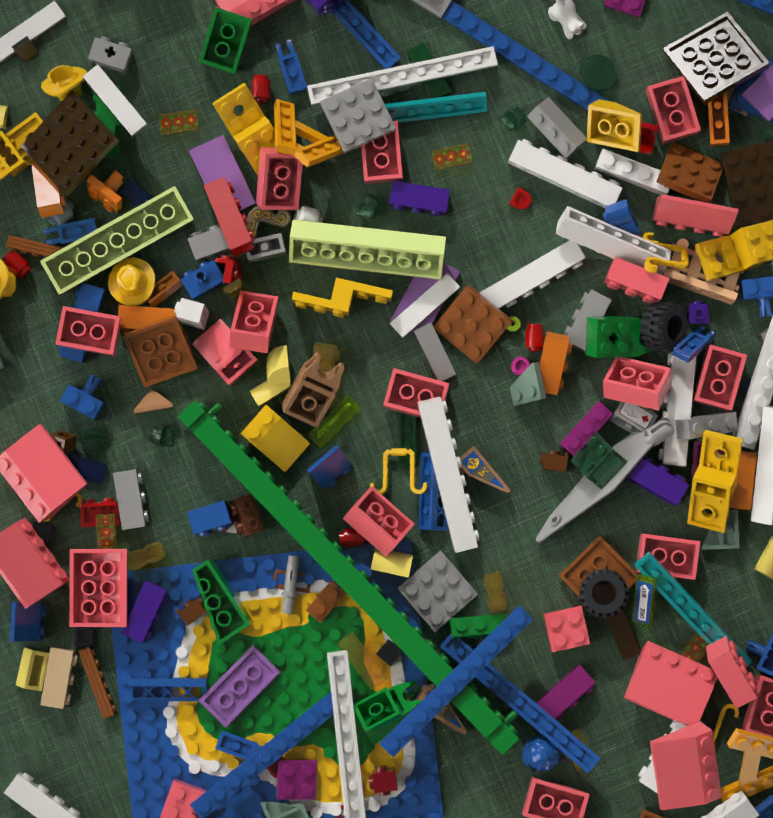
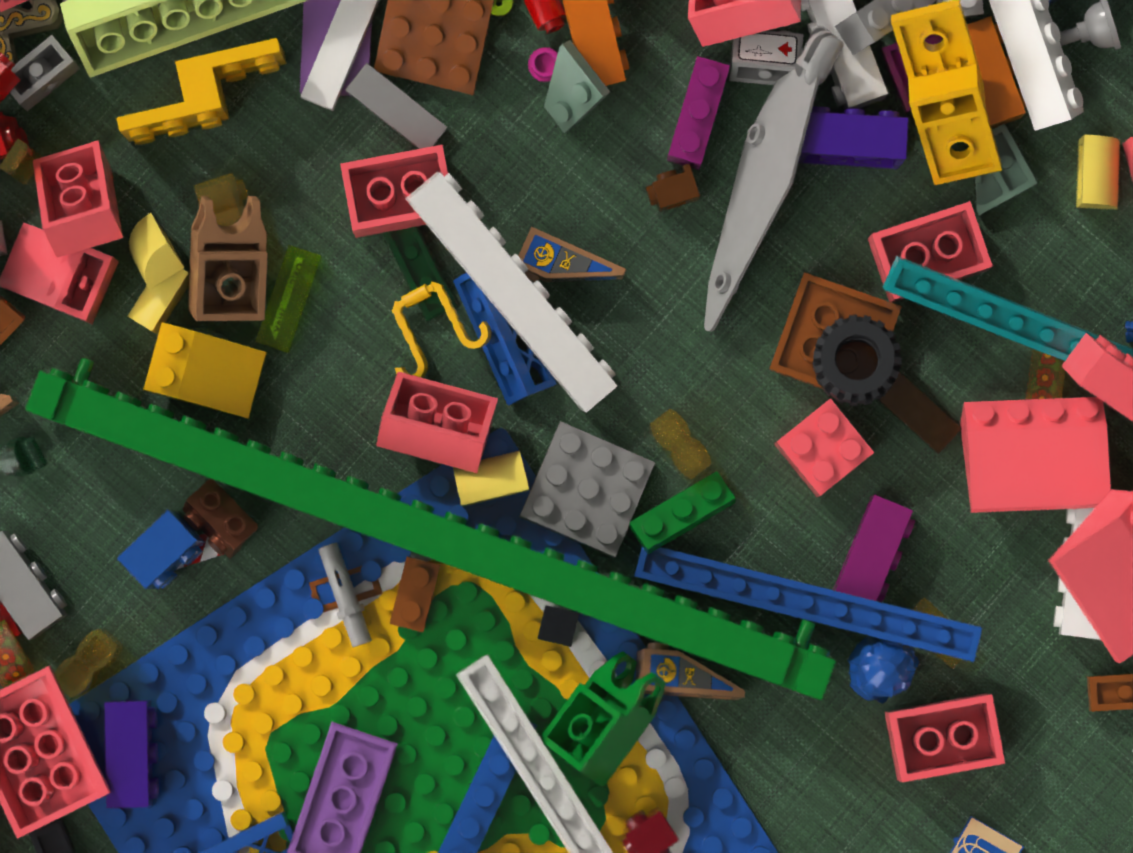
camera: 25 degrees left, 0 degrees up
(192, 610) = (205, 714): reddish brown brick -> none
(220, 601) = (244, 677): green wedge -> none
(330, 467) = (316, 373): blue slope -> none
(351, 538) = (407, 472): red brick -> none
(362, 661) = (521, 660): clear yellow tile -> none
(456, 681) = (687, 617): blue plate -> none
(598, 460) = (744, 151): clear green piece -> none
(644, 600) = (927, 338): tile -> none

